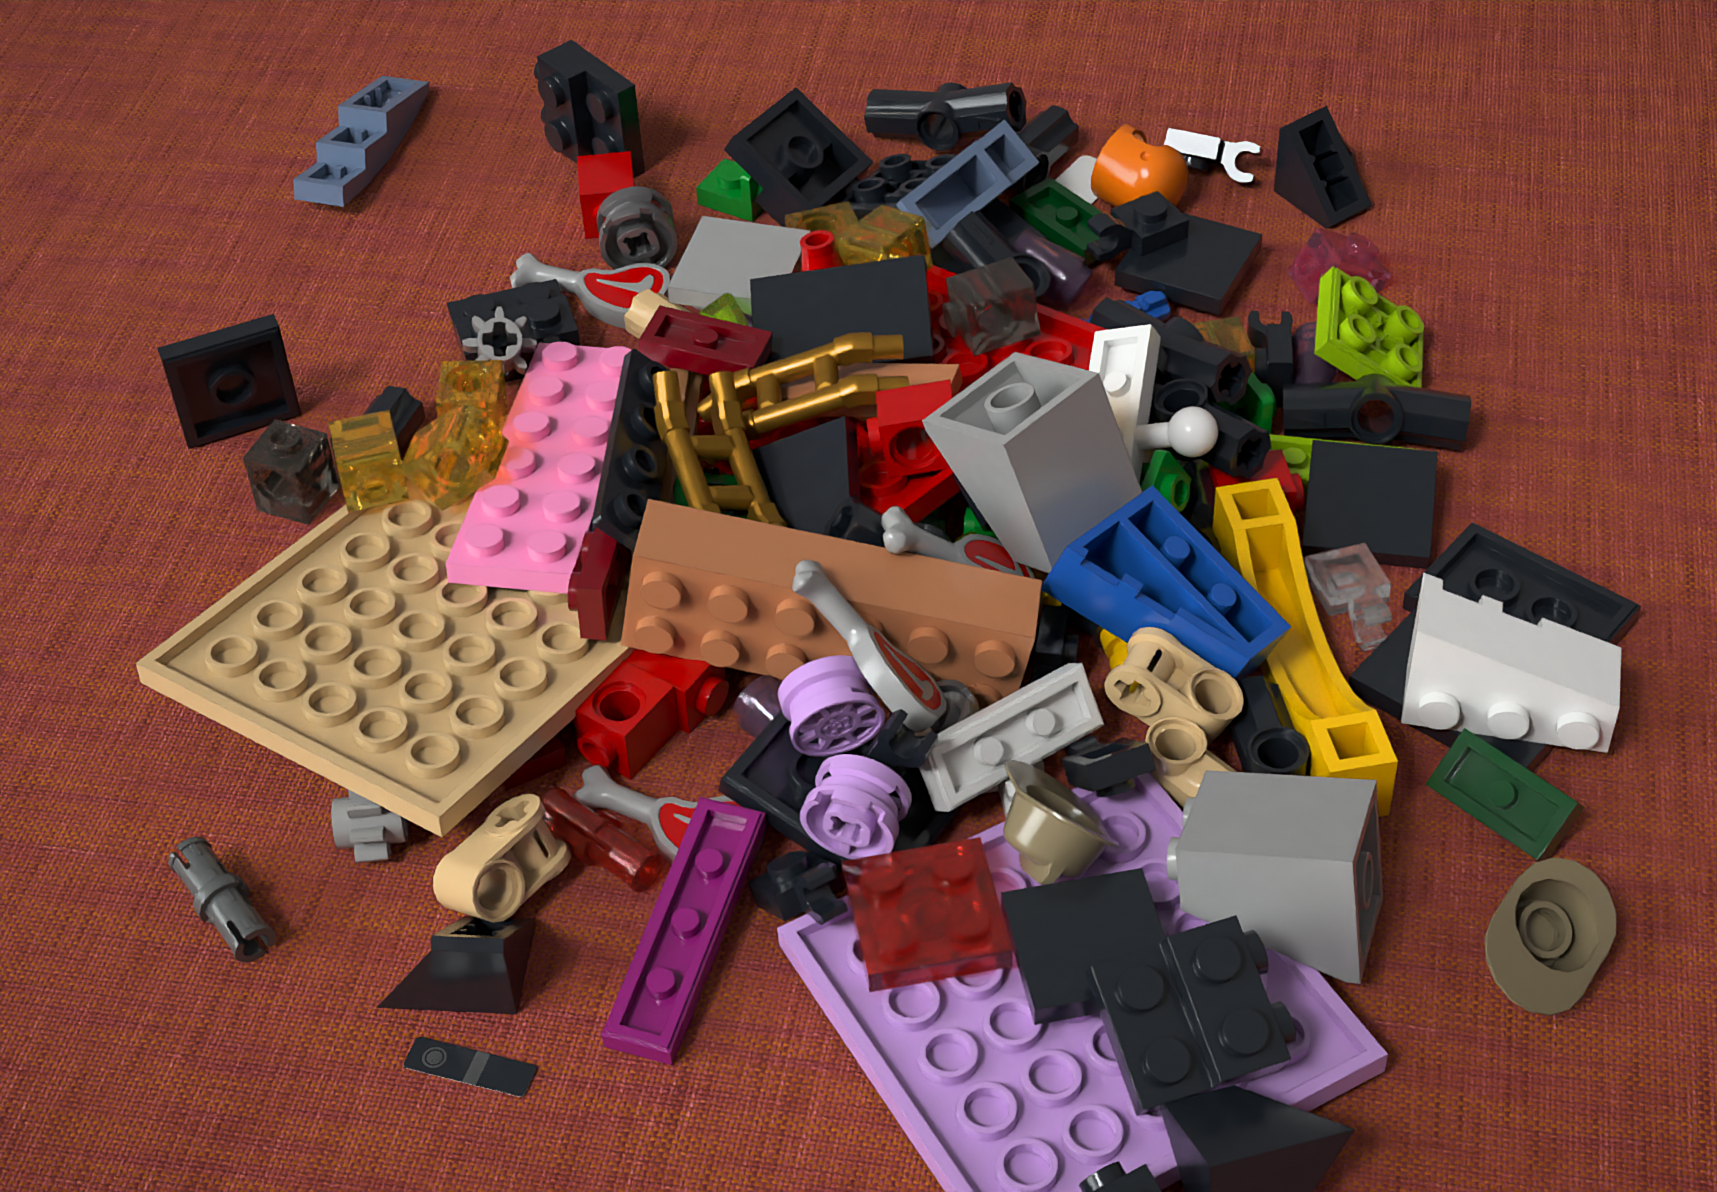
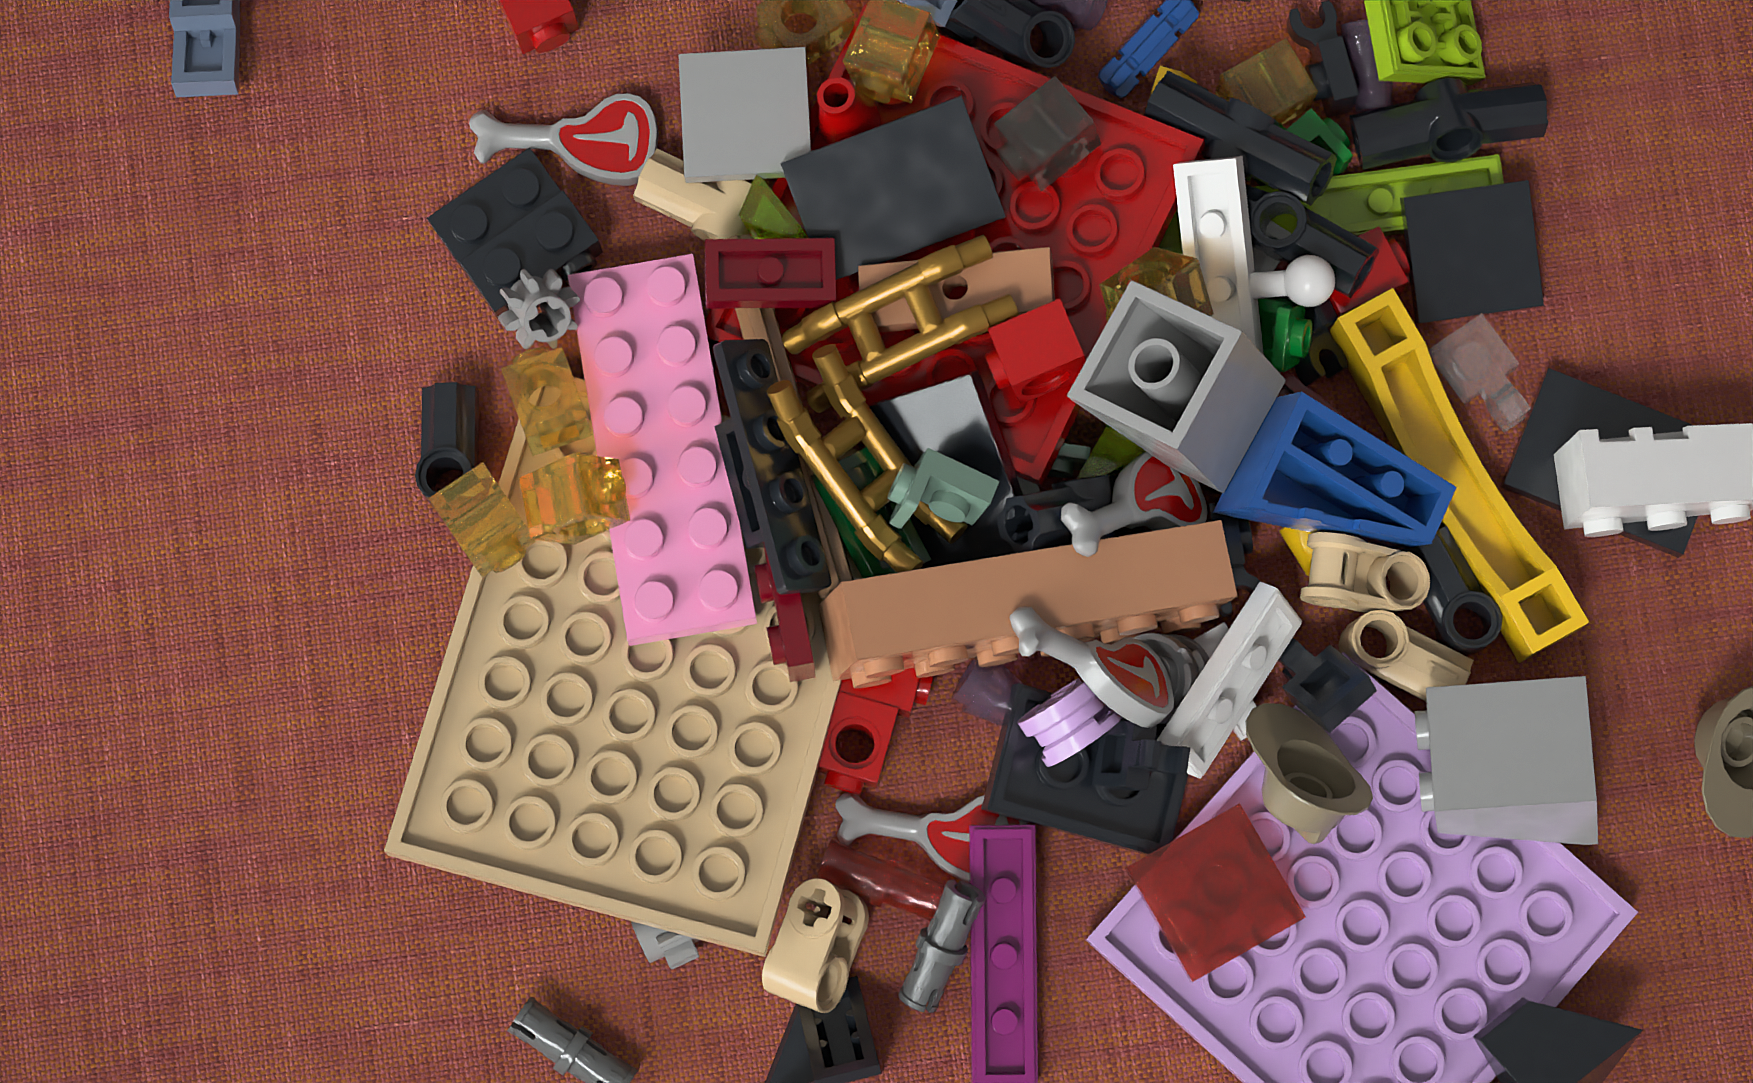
camera: 20 degrees left, 35 degrees up
(230, 381) = (270, 432): black tile -> none
(291, 472) = (385, 522): clear smoke brick -> none
(625, 892) = (941, 946): none -> dark grey pin
(636, 228) = (594, 60): flat silver wheel -> none
(780, 487) = (945, 485): none -> sand green bracket
(797, 885) = (1089, 885): black plate -> none
(853, 807) = (1126, 817): lavender wheel -> none
(1073, 925) = (1370, 894): black tile -> none
(1191, 1014) = (1481, 951): black plate -> none
(1504, 796) = (1674, 593): dark green plate -> none
(1527, 585) = (1638, 336): black tile -> none

